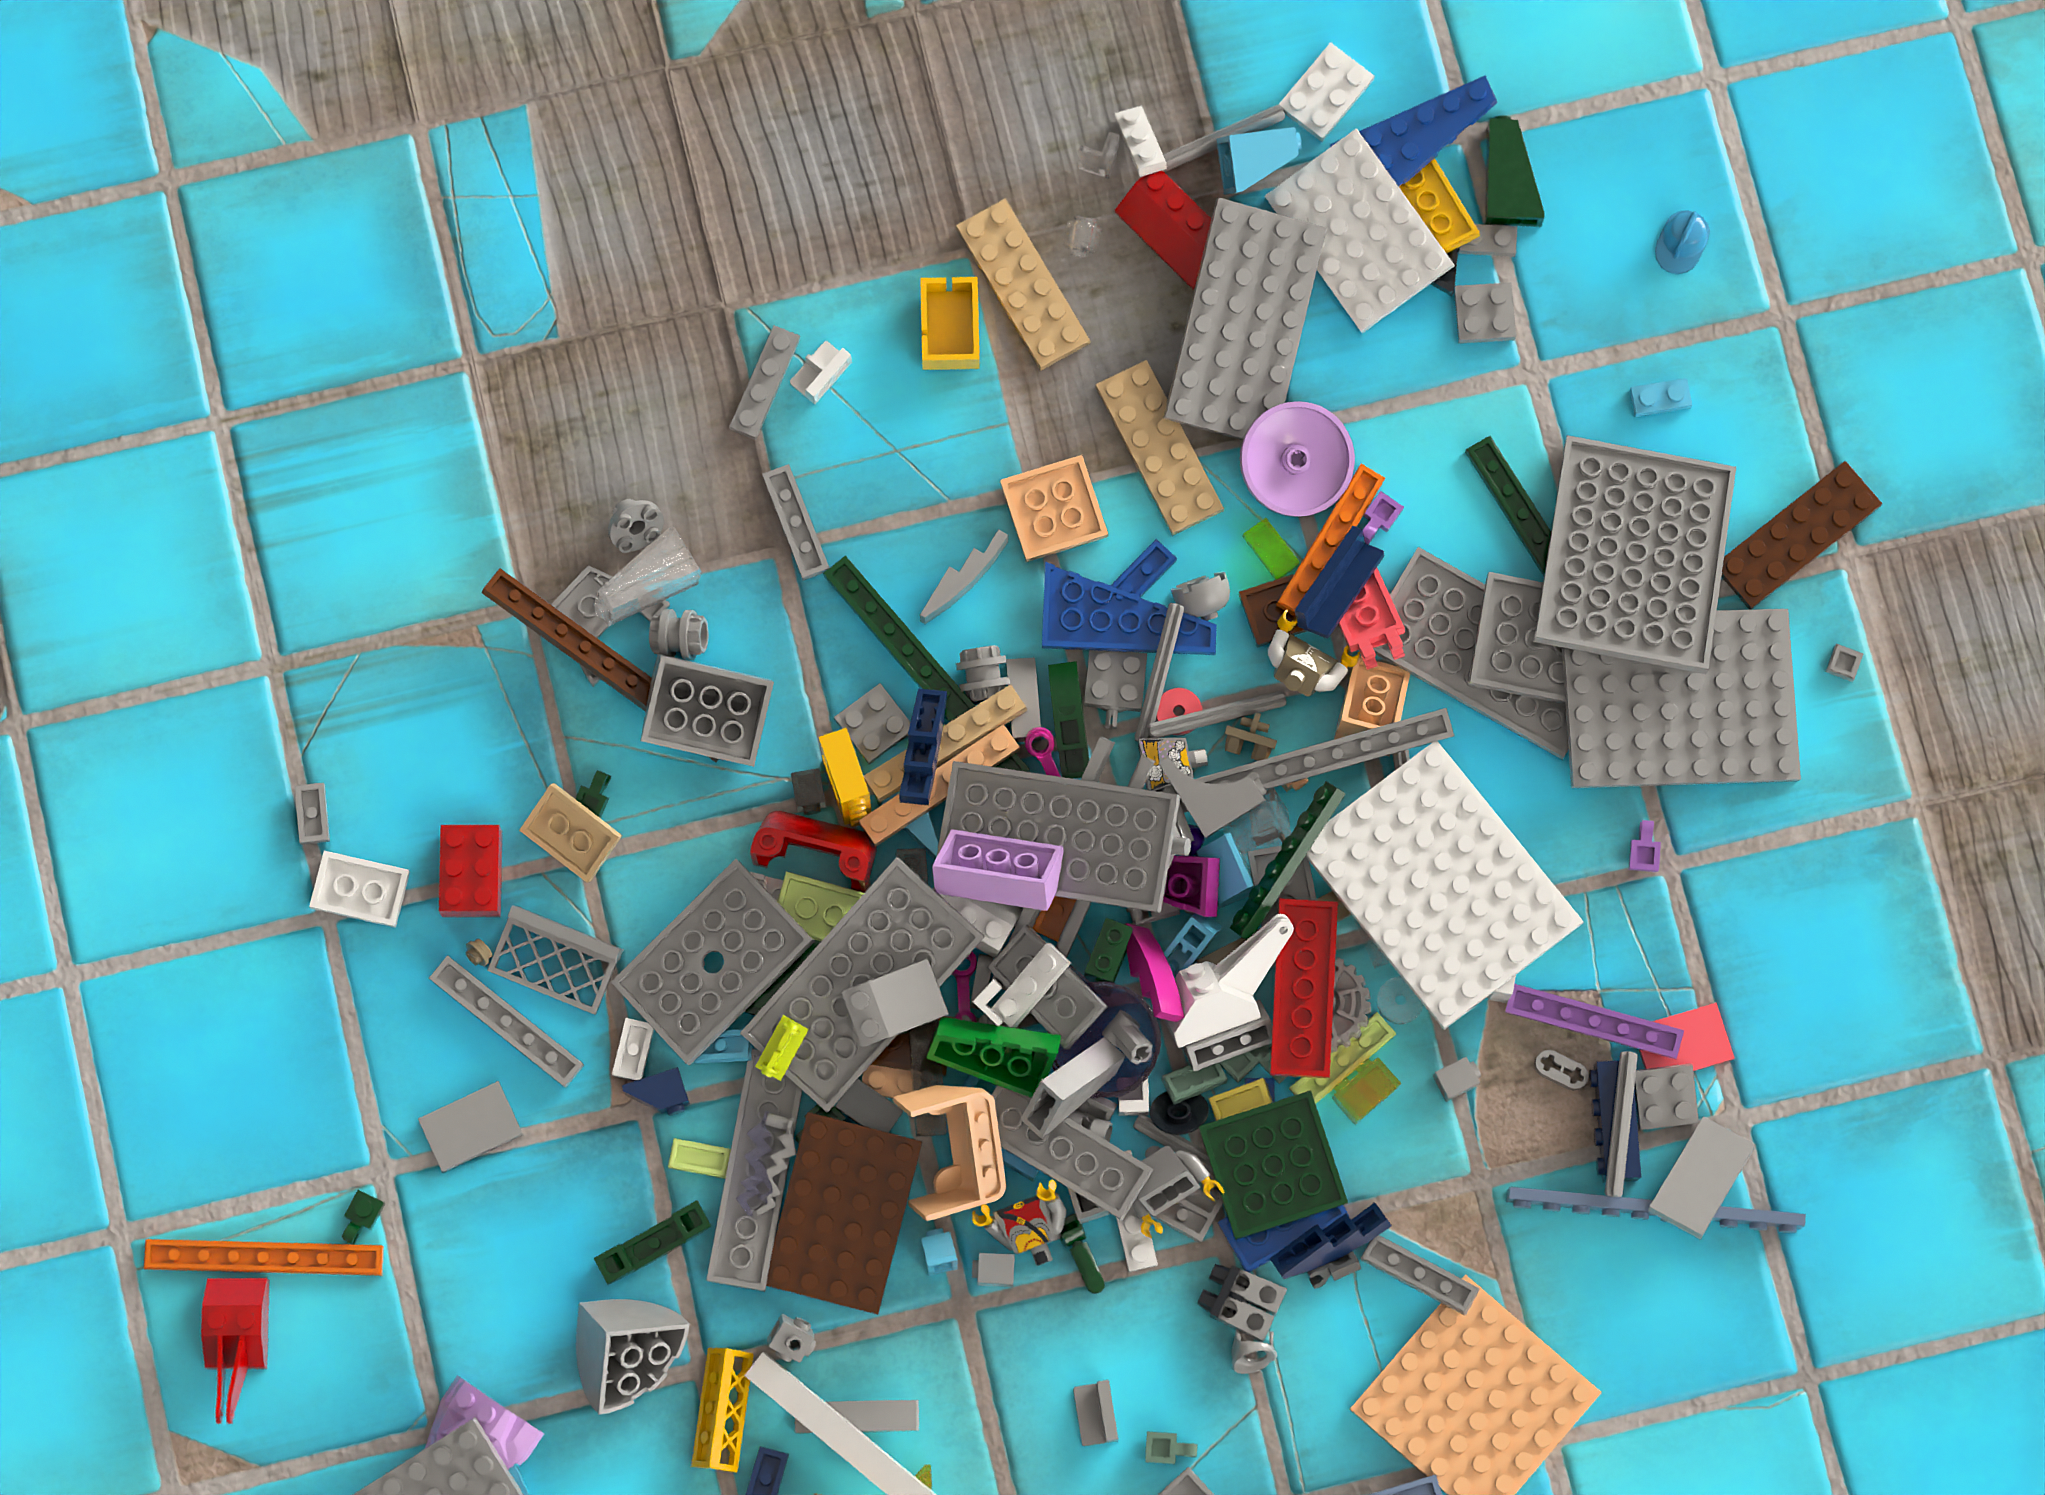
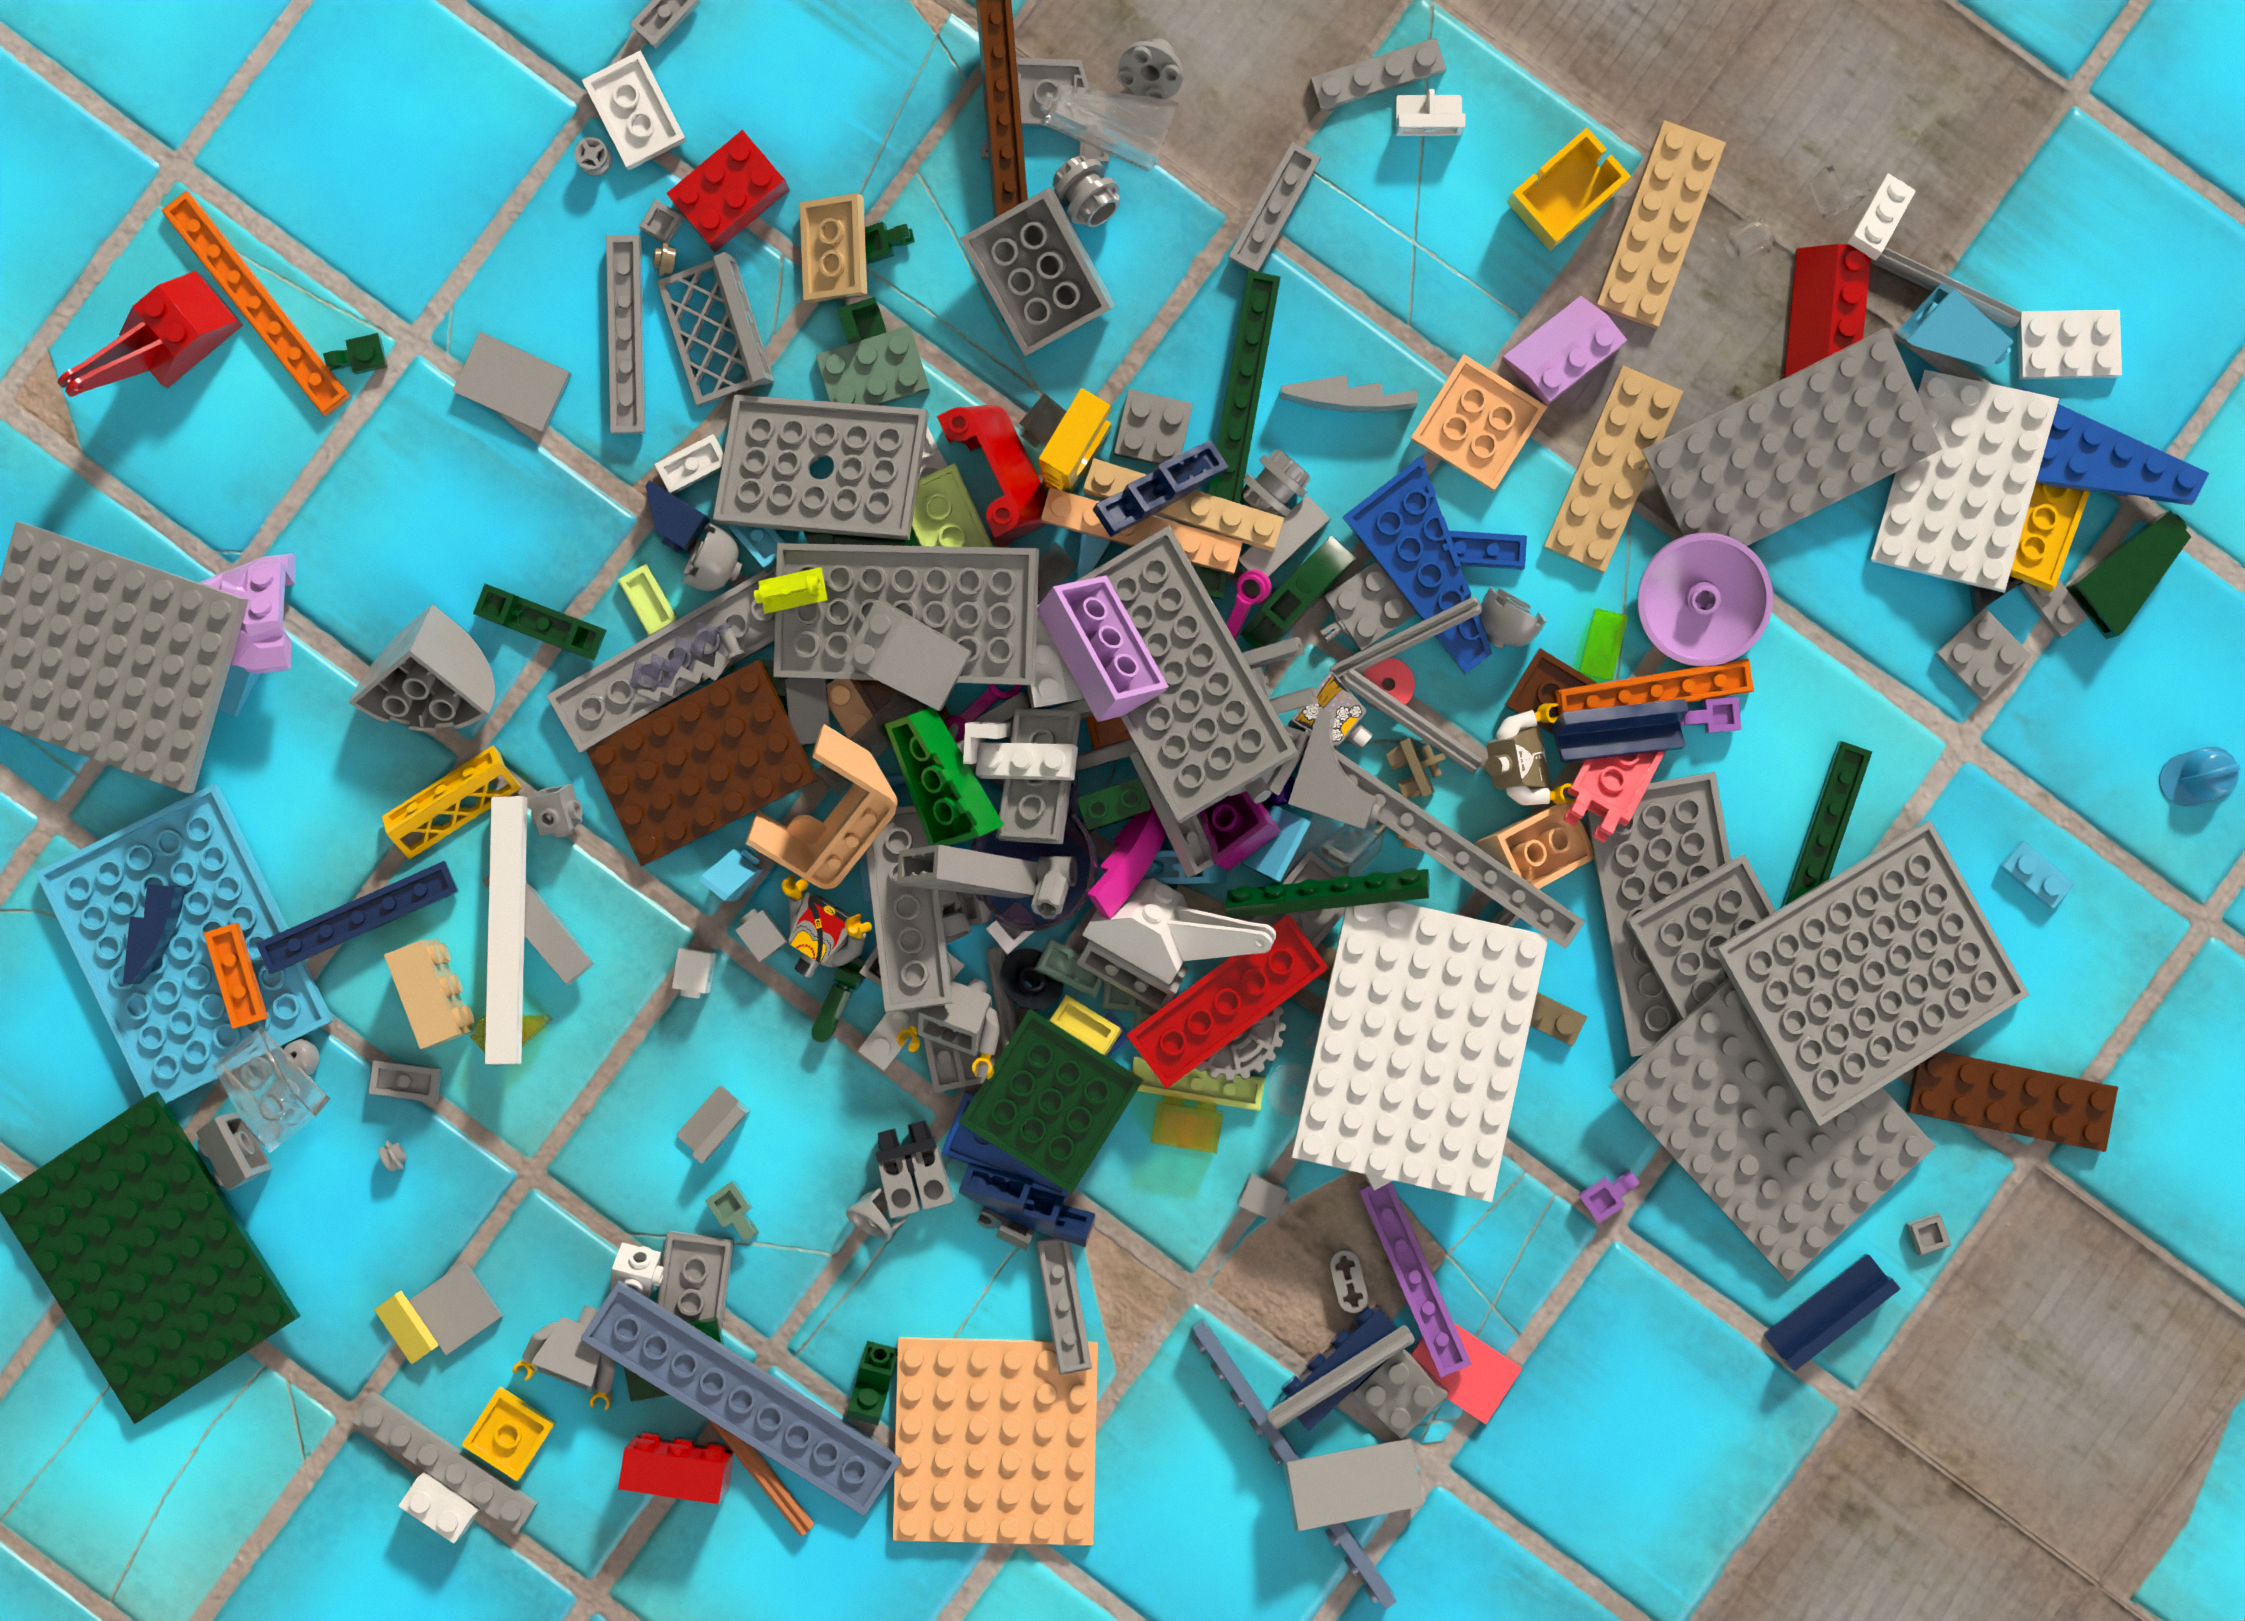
camera: 55 degrees right, 10 degrees up
(363, 938) = (587, 151): none -> light grey wheel
(450, 935) = (661, 222): none -> light grey tile
(635, 856) = (861, 320): none -> dark green panel
(674, 875) = (874, 369): none -> sand green plate
(711, 1089) = (712, 560): none -> light grey cylinder
(981, 1338) = (693, 972): none -> white brick
(1053, 413) = (1564, 350): none -> lavender slope
(1170, 921) = (1186, 837): none -> light grey plate
(1366, 1451) = (872, 1383): none -> dark green slope
(1499, 786) = (1556, 1019): none -> dark tan plate
(1844, 768) = (1830, 1312): none -> dark blue panel

